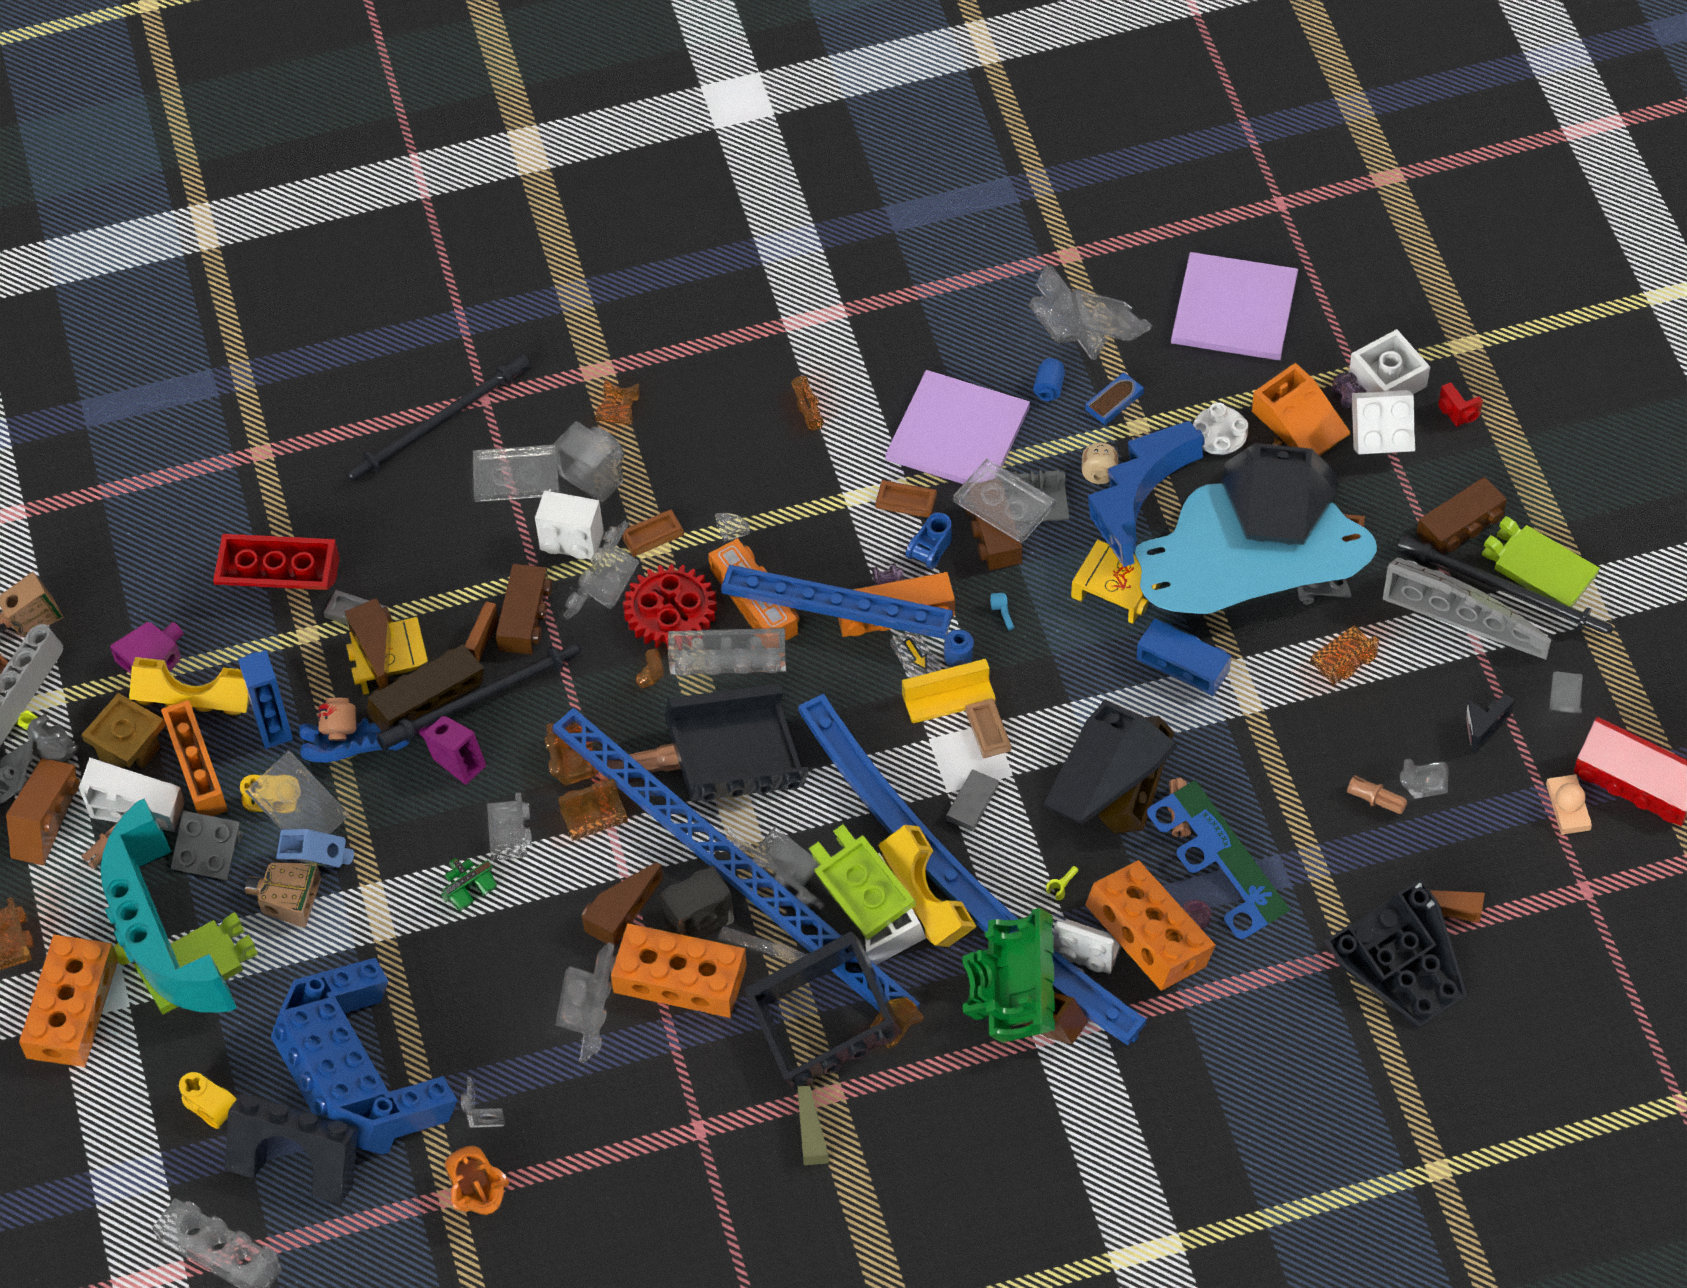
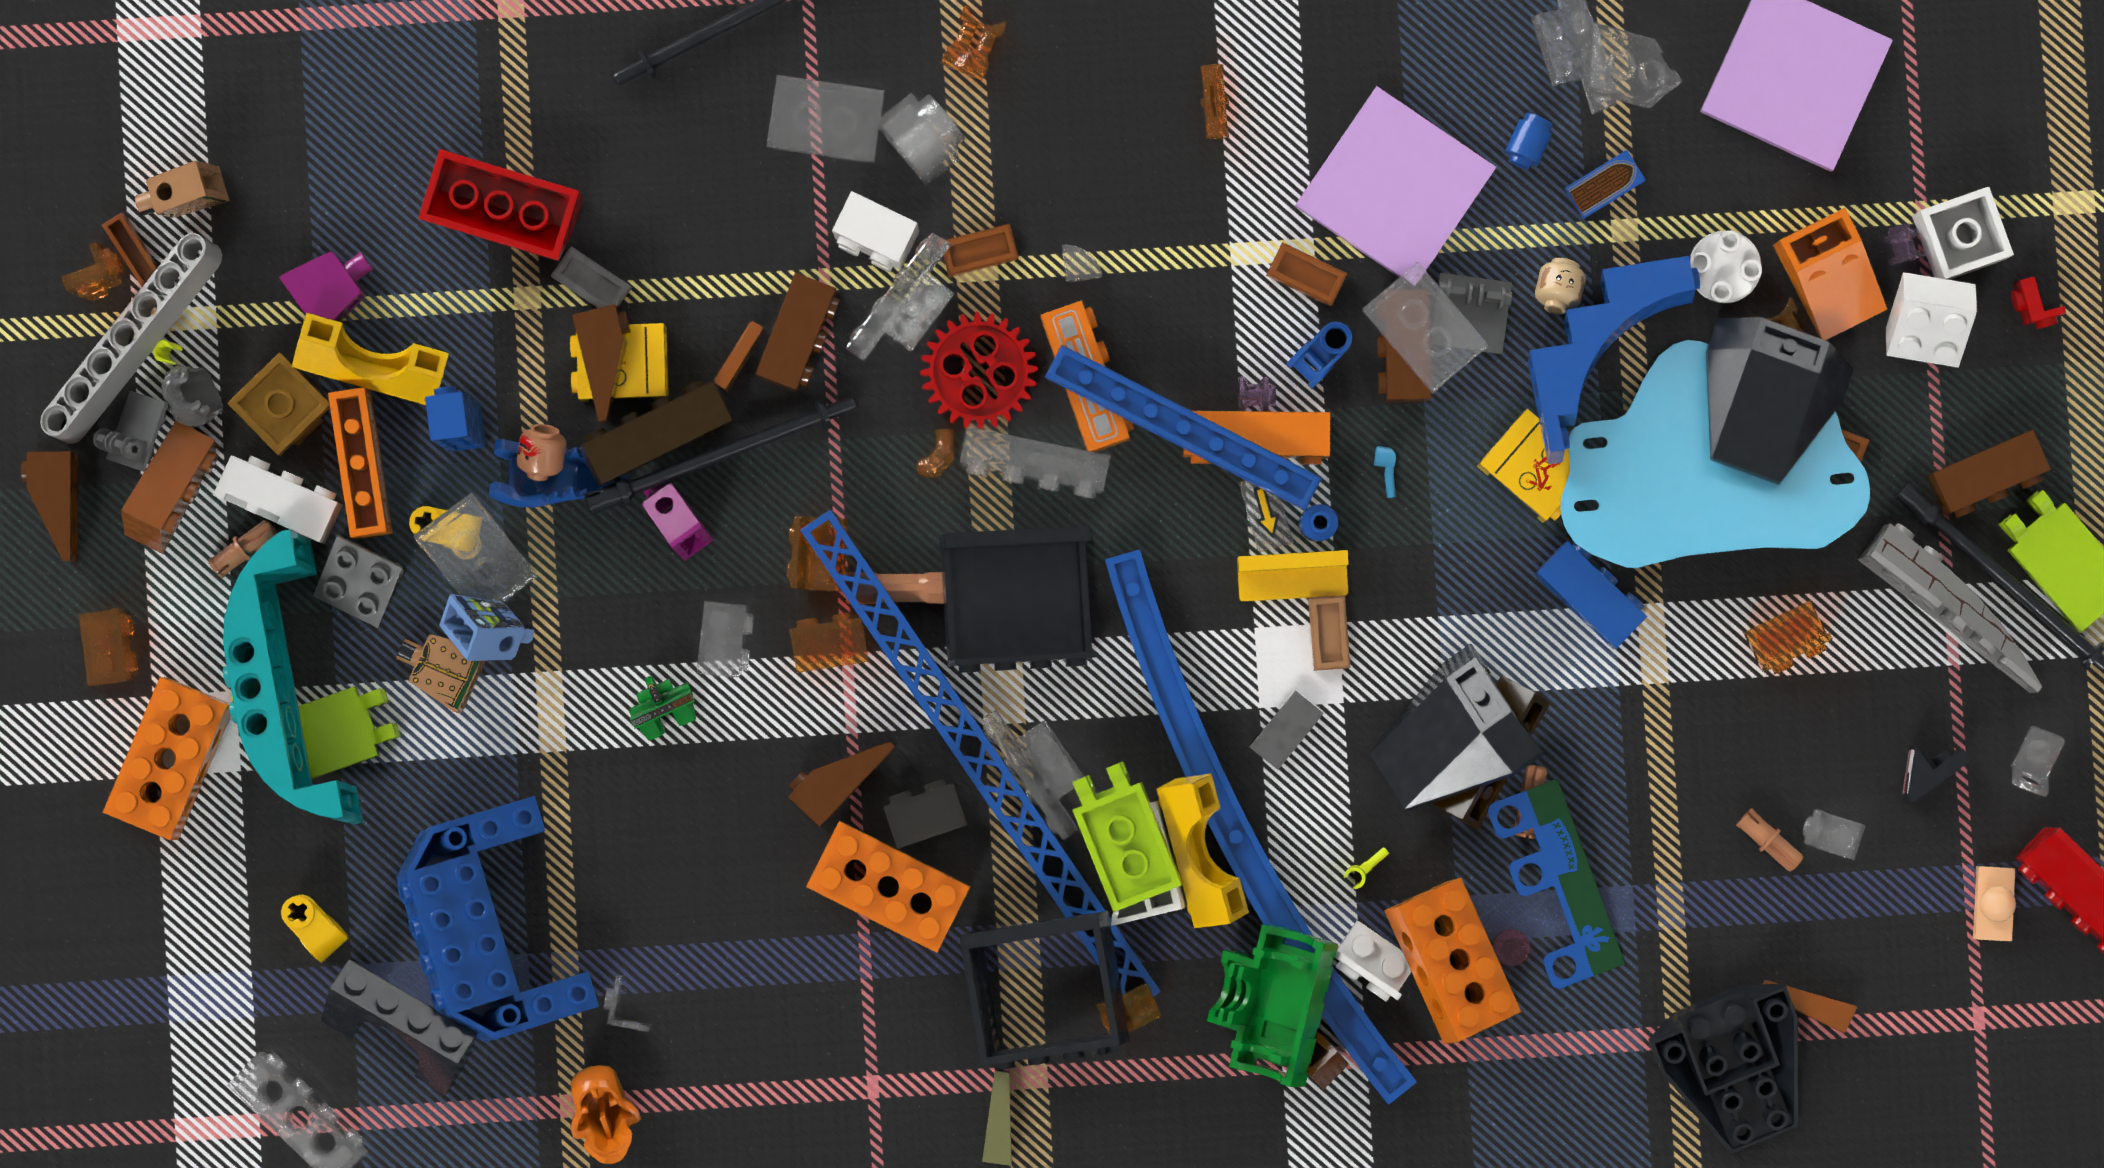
camera: 10 degrees right, 30 degrees up
(584, 999) = (771, 899): clear bracket -> none
(761, 944) = (995, 868): clear bar -> none

